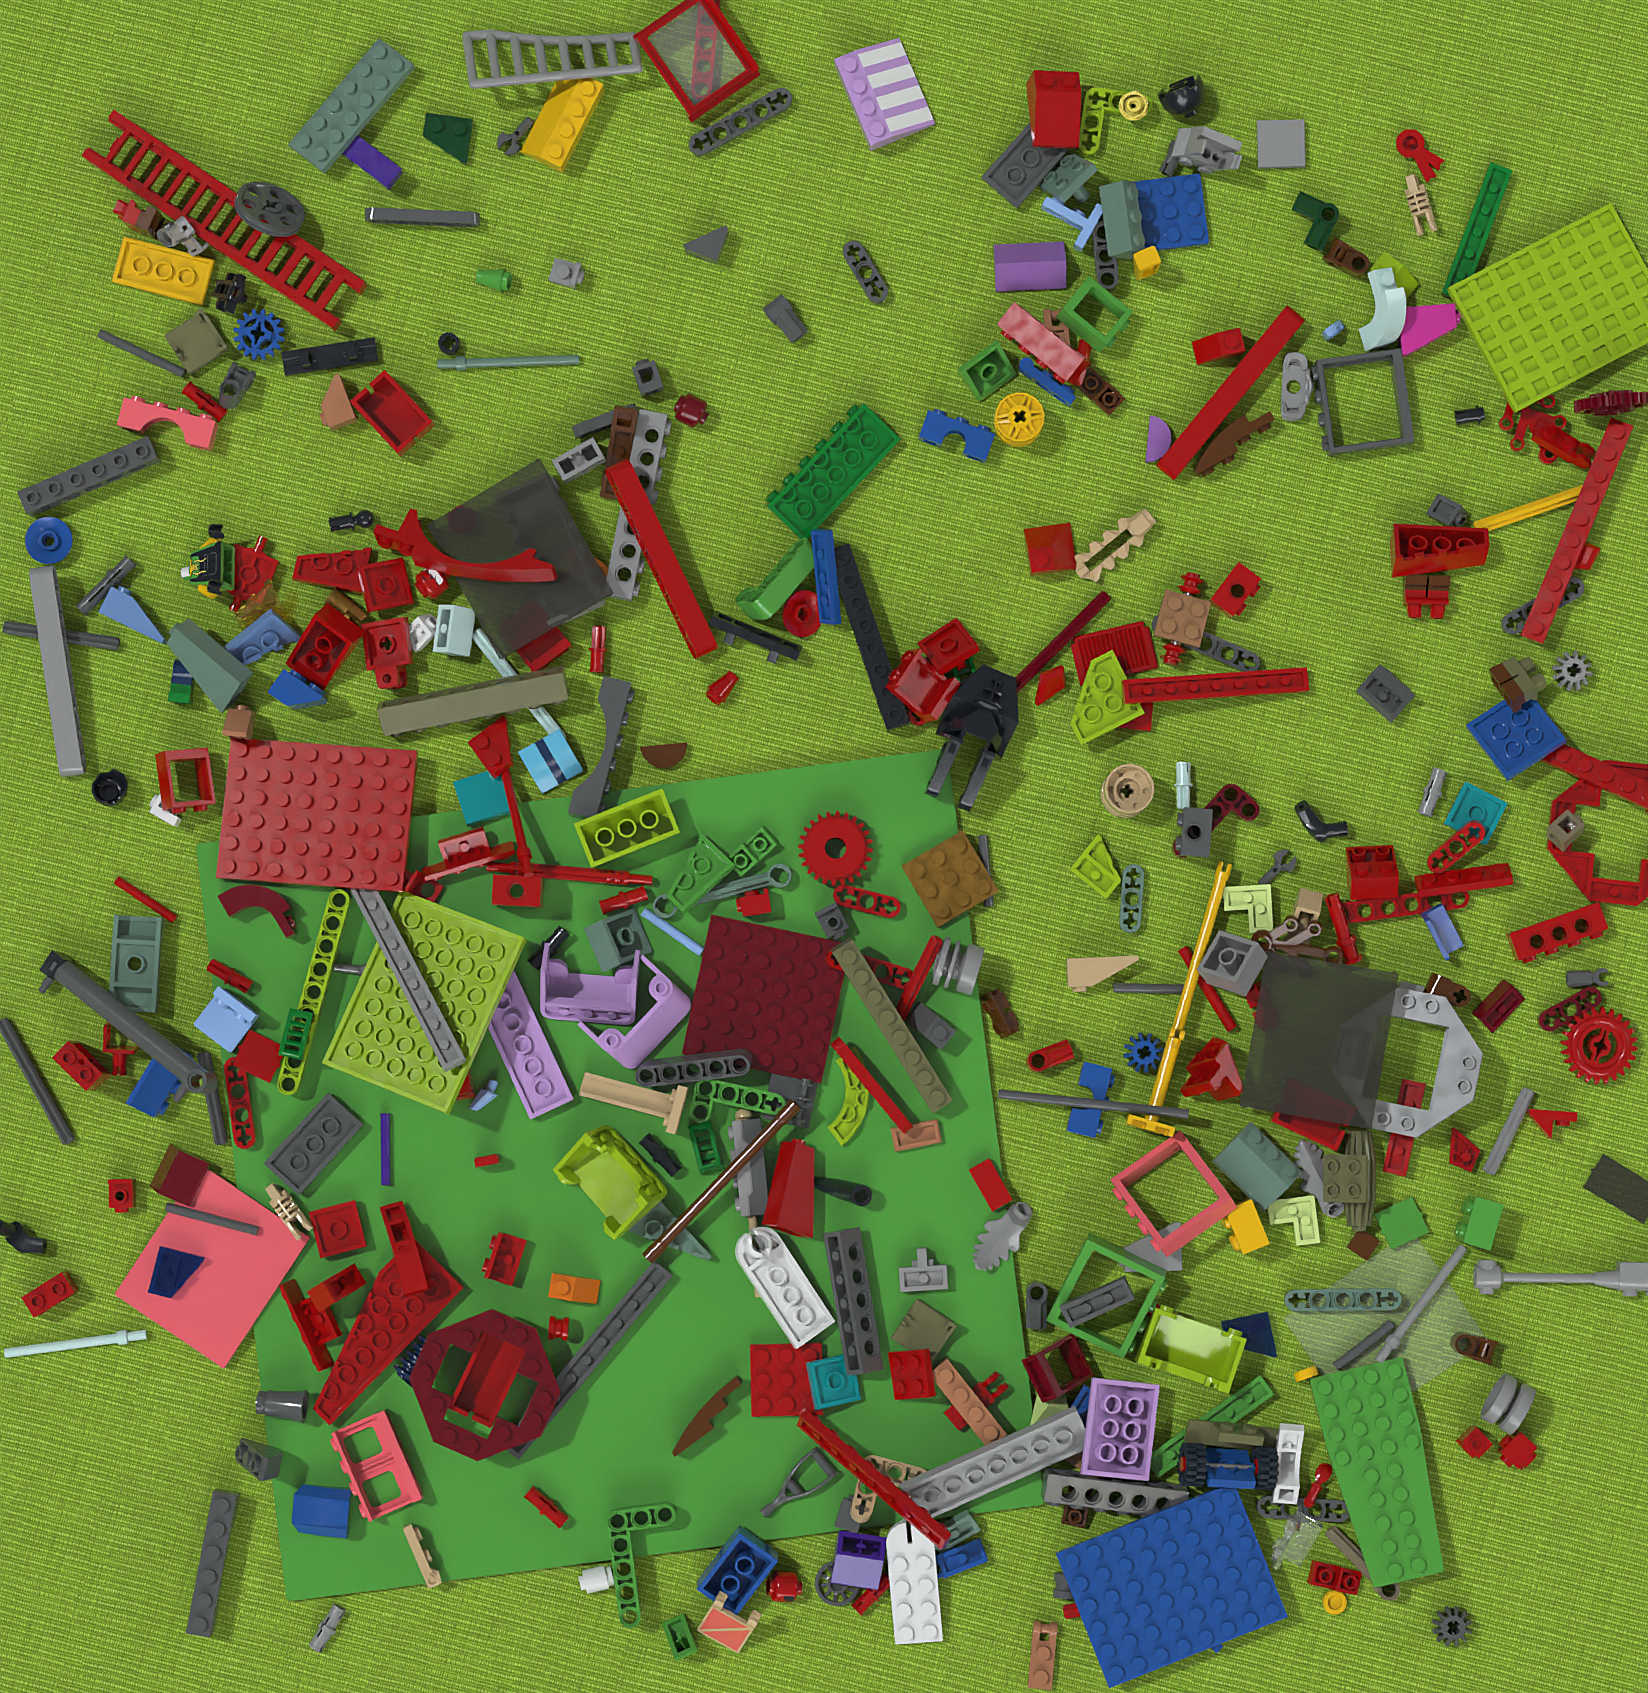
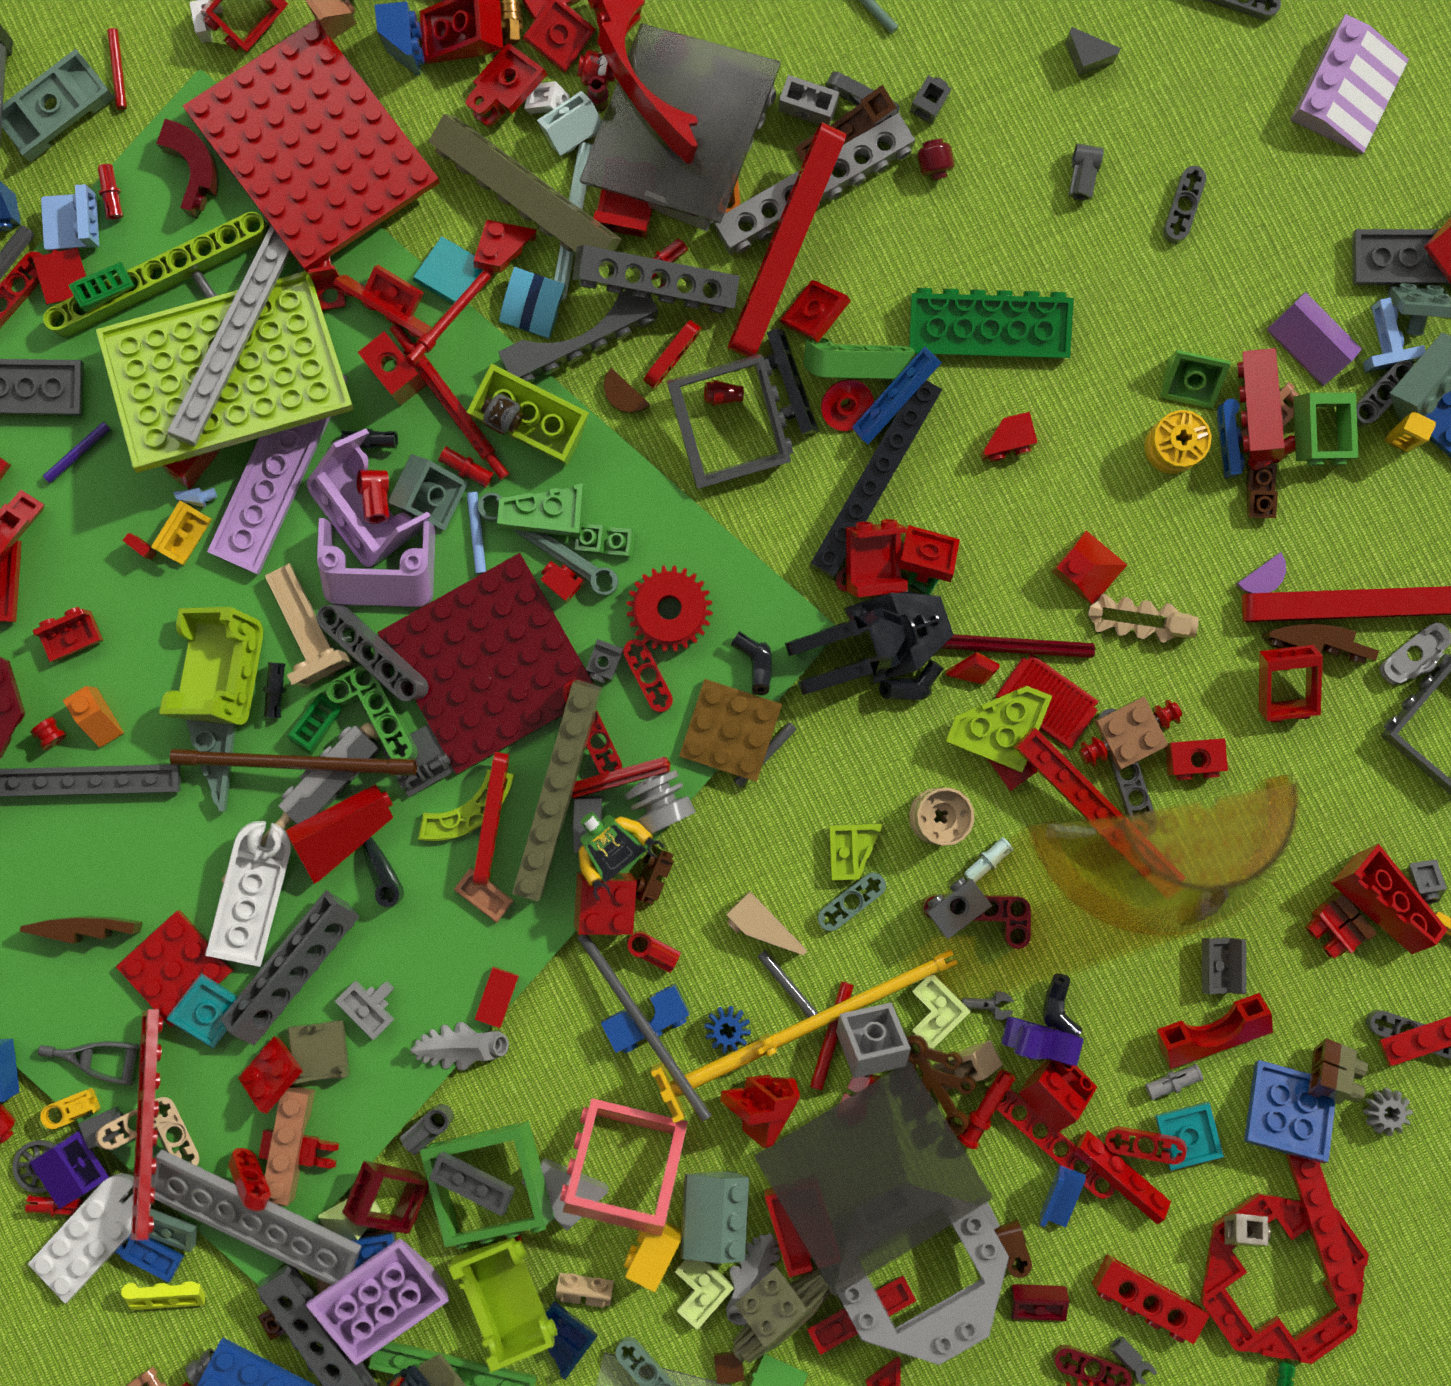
camera: 45 degrees right, 0 degrees up
(447, 591) = (598, 93): none -> dark red pin
(502, 1125) = (181, 533): none -> yellow hinge
(564, 700) = (722, 285): none -> dark grey brick
(585, 973) = (374, 487): none -> red piece
(615, 845) = (502, 414): none -> head
(667, 698) = (672, 354): none -> red beam
(722, 579) = (815, 310): none -> red tile
(769, 750) = (776, 419): none -> dark grey window
(818, 1524) = (71, 1108): none -> yellow piece
(917, 524) = (1012, 435): none -> red slope
(924, 819) = (761, 661): none -> black arm
(938, 426) = (1110, 380): blue arch -> none
(960, 1021) = (610, 847): none -> torso
(968, 1443) = (246, 1188): none -> red beam
(991, 1059) = (613, 913): none -> red brick
(994, 1572) = (163, 1295): none -> neon yellow plate
(1026, 736) = (909, 688): none -> black arm
(1218, 346) = (1393, 559): red slope -> none
(1221, 1300) = (596, 1290): none -> tan hinge
(1222, 477) = (1287, 659): none -> red window
(1291, 667) = (1174, 864): none -> clear yellow cone
(1329, 854) = (1041, 1041): none -> dark purple beam
(1433, 712) = (1244, 1022): none -> red arch

